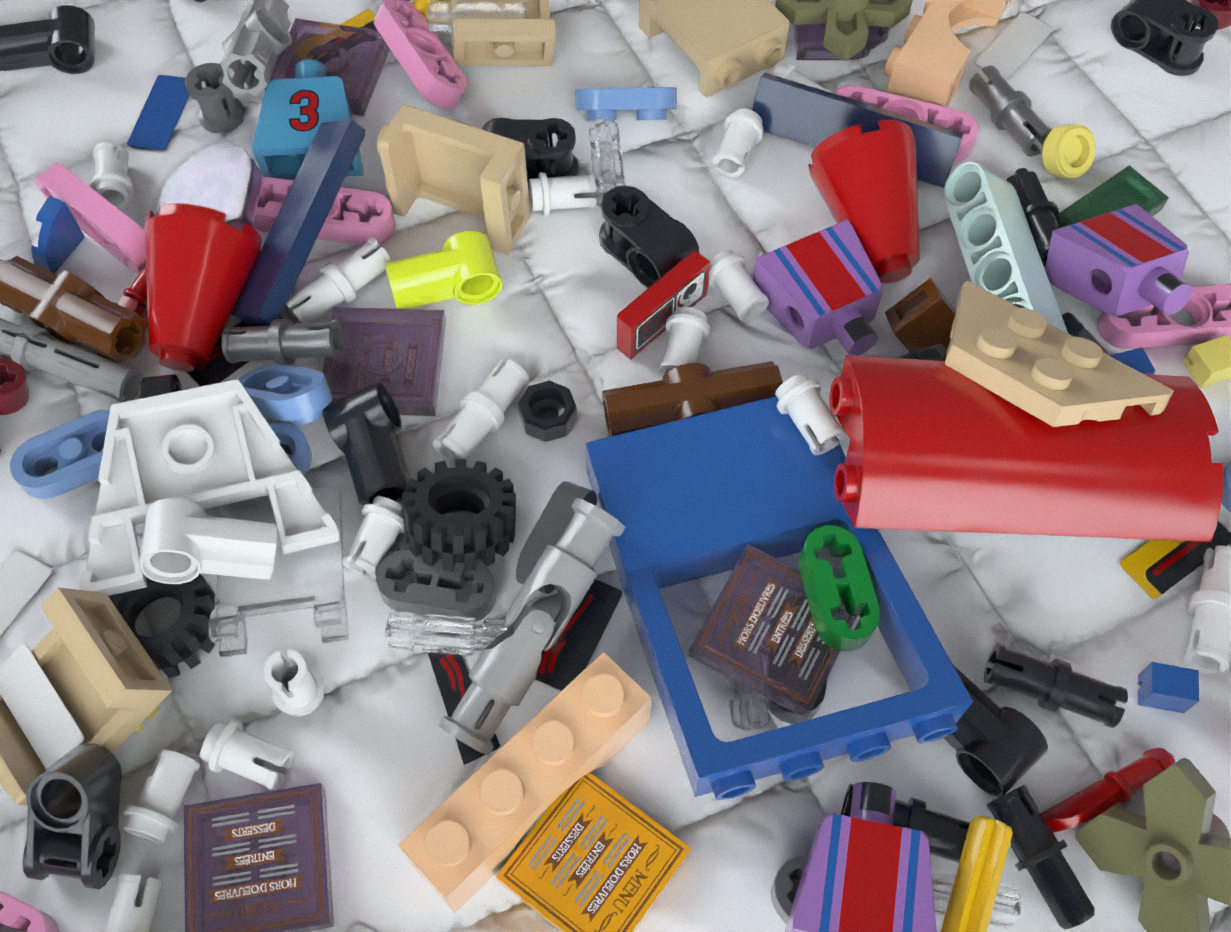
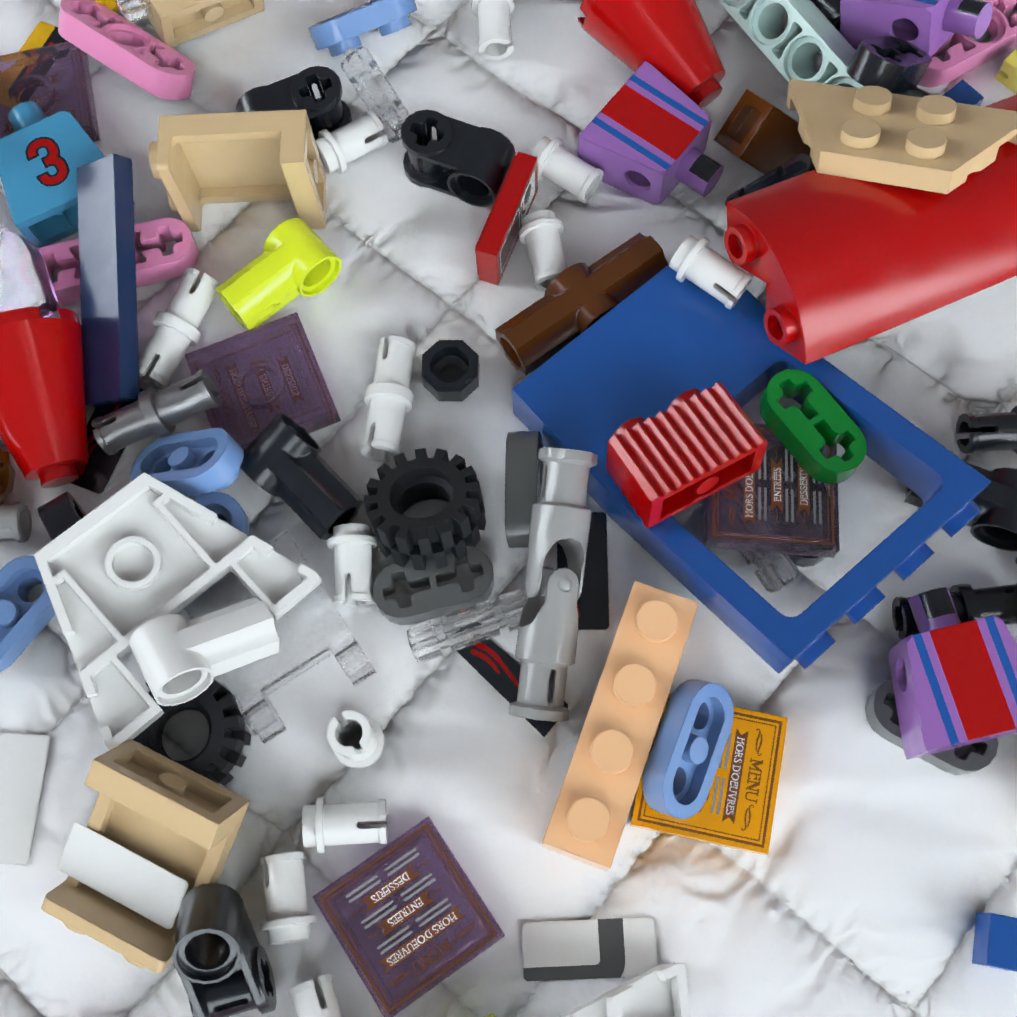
camera: 20 degrees left, 10 degrees up
(577, 827) = (688, 748): none -> medium blue plate
(702, 557) = (684, 453): none -> red brick
(1068, 303) = (888, 64): none -> black beam

